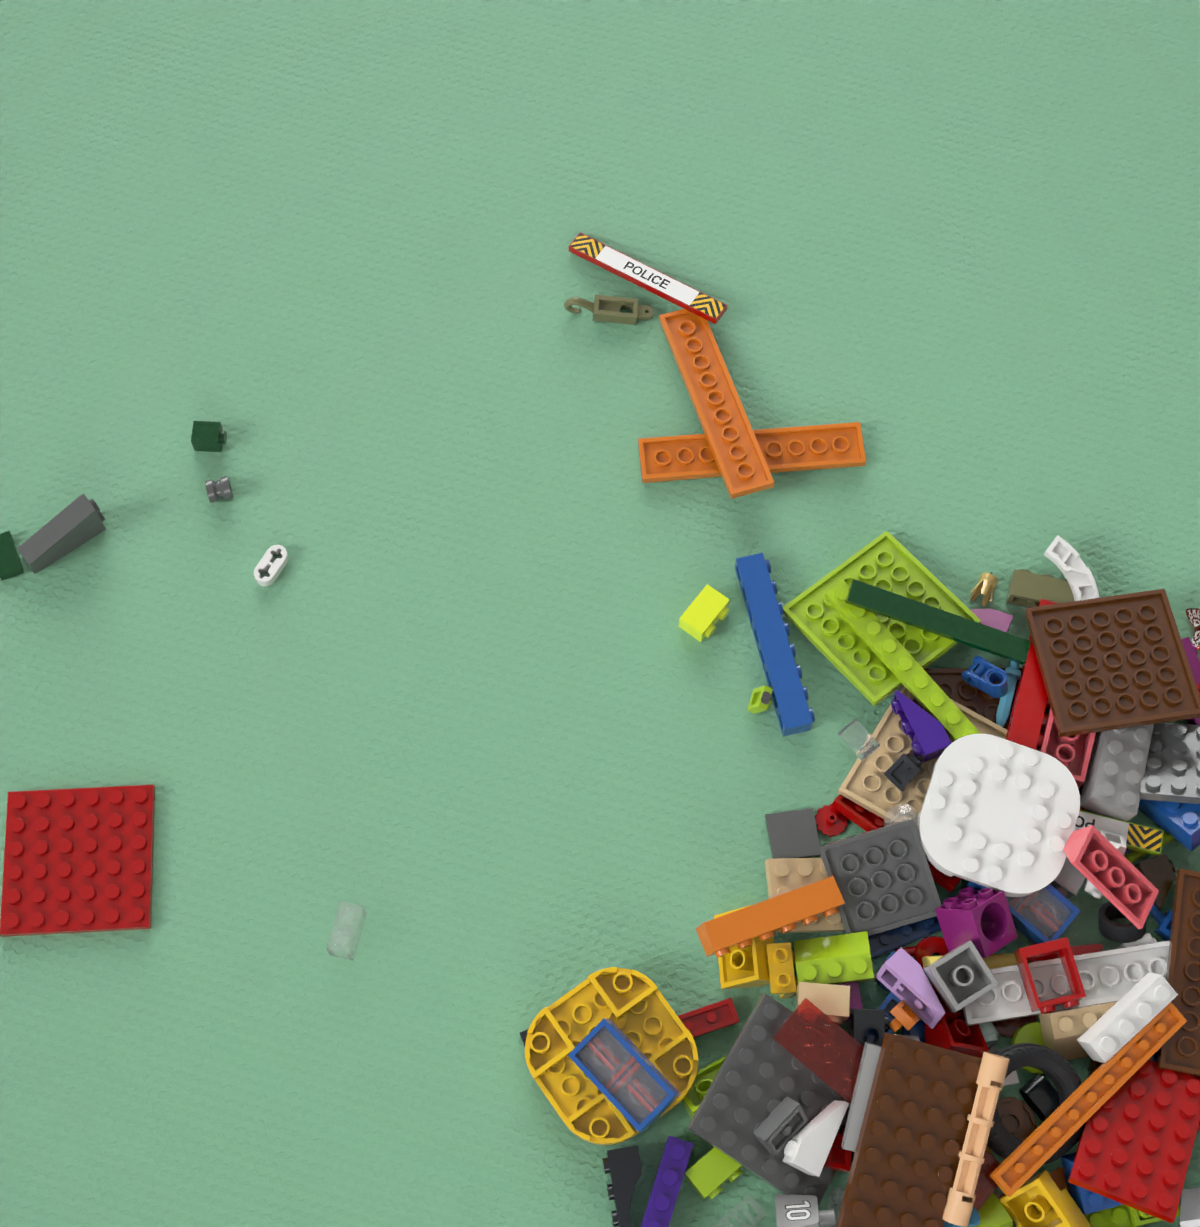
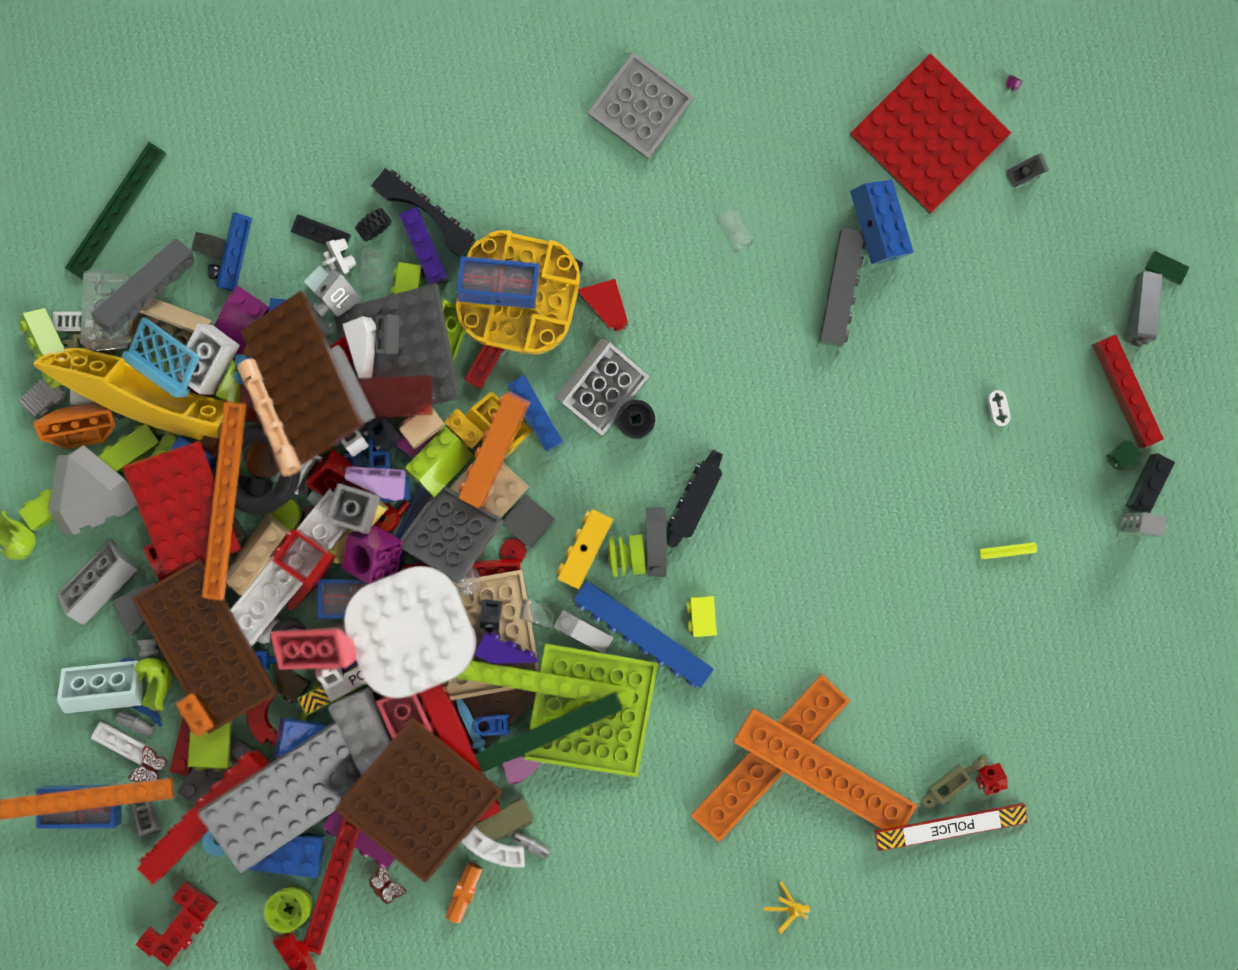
camera: 140 degrees right, 20 degrees up
(30, 742) = (1028, 170): none -> dark grey slope
(149, 483) = (1127, 391): none -> red brick
(206, 812) = (881, 221): none -> blue brick
(210, 395) = (1150, 483): none -> black brick
(219, 489) = (1080, 426): dark grey wheel -> none
(252, 363) = (1143, 524): none -> light grey brick
(300, 789) = (841, 287): none -> dark grey brick
(318, 1141) = (640, 105): none -> light grey plate
(383, 445) = (1010, 550): none -> neon yellow axle
(533, 970) = (606, 304): none -> red slope
(577, 283) = (992, 779): none -> red brick
(611, 897) = (601, 386): none -> light grey slope
(616, 717) = (696, 500): none -> black hinge
(618, 829) = (636, 430): none -> black brick
(686, 710) = (656, 541): none -> dark grey arch
(699, 911) = (536, 414): none -> blue brick
(730, 721) = (626, 555): none -> lime wheel
(760, 699) = (619, 589): lime plate -> none
(761, 758) = (579, 562): none -> yellow brick
(828, 694) = (583, 631): none -> light grey slope
(842, 321) = (794, 909): none -> yellow plant
(903, 1016) = (368, 458): orange tile -> none
(986, 585) = (543, 795): pearl gold piece -> none
(1034, 554) = (531, 845): none -> light grey pin
(1127, 1017) = (238, 569): white brick -> none
(1131, 564) = (463, 892): none -> orange piece

